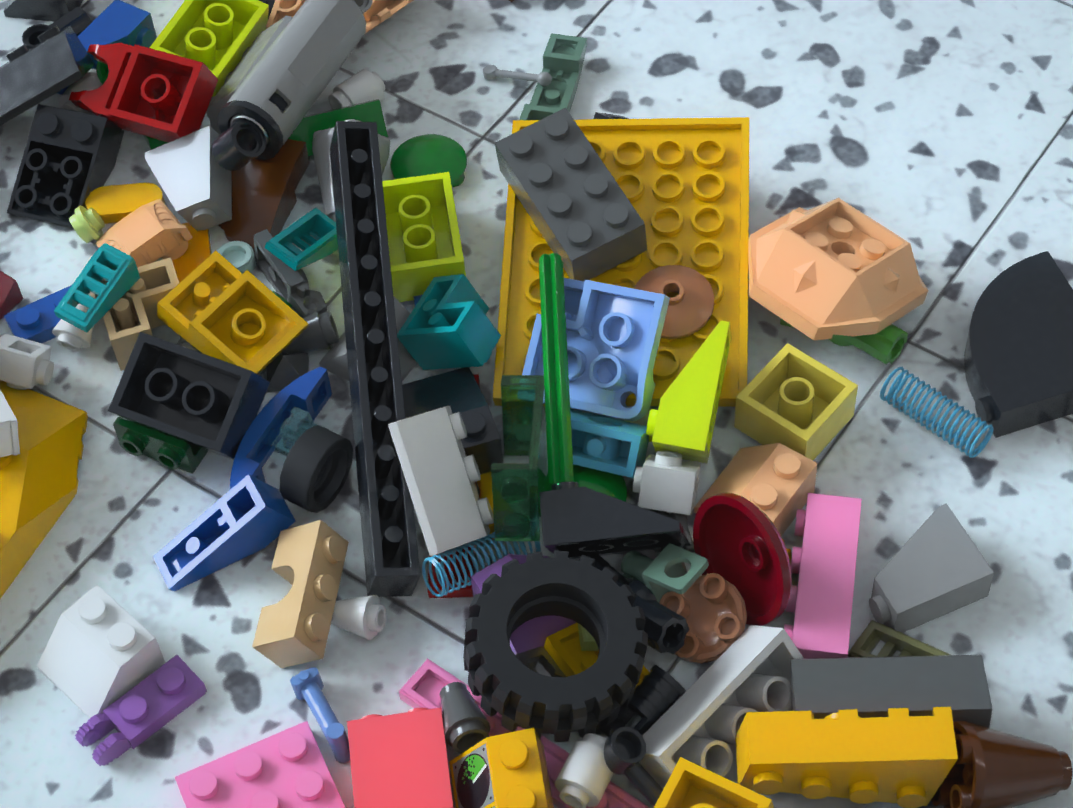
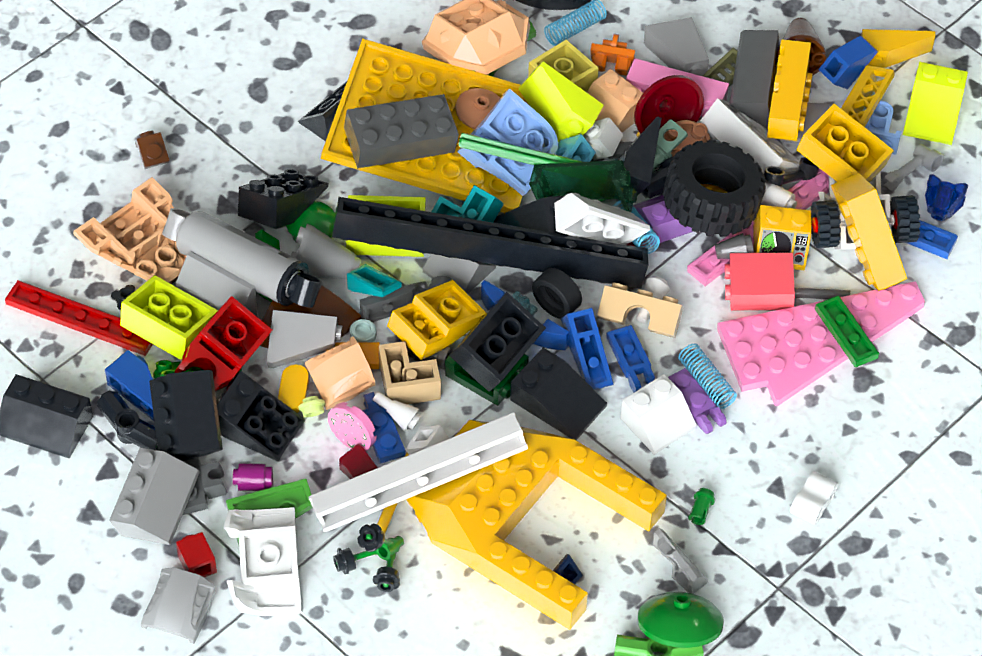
camera: 85 degrees left, 0 degrees up
(35, 263) = (351, 426): none -> bright pink tile
(105, 264) = (389, 367): teal slope -> none
(130, 509) = (556, 394): none -> black slope
(147, 764) = (696, 351): none -> medium azure piece
(216, 603) = (630, 356): none -> blue hinge
(309, 686) = (732, 309): medium blue piece -> none
(449, 111) = (279, 198): none -> black slope
(491, 72) = (236, 179): light grey hinge -> none
(564, 62) = (270, 150): sand green slope -> none
(879, 475) = (613, 52): none -> orange hips

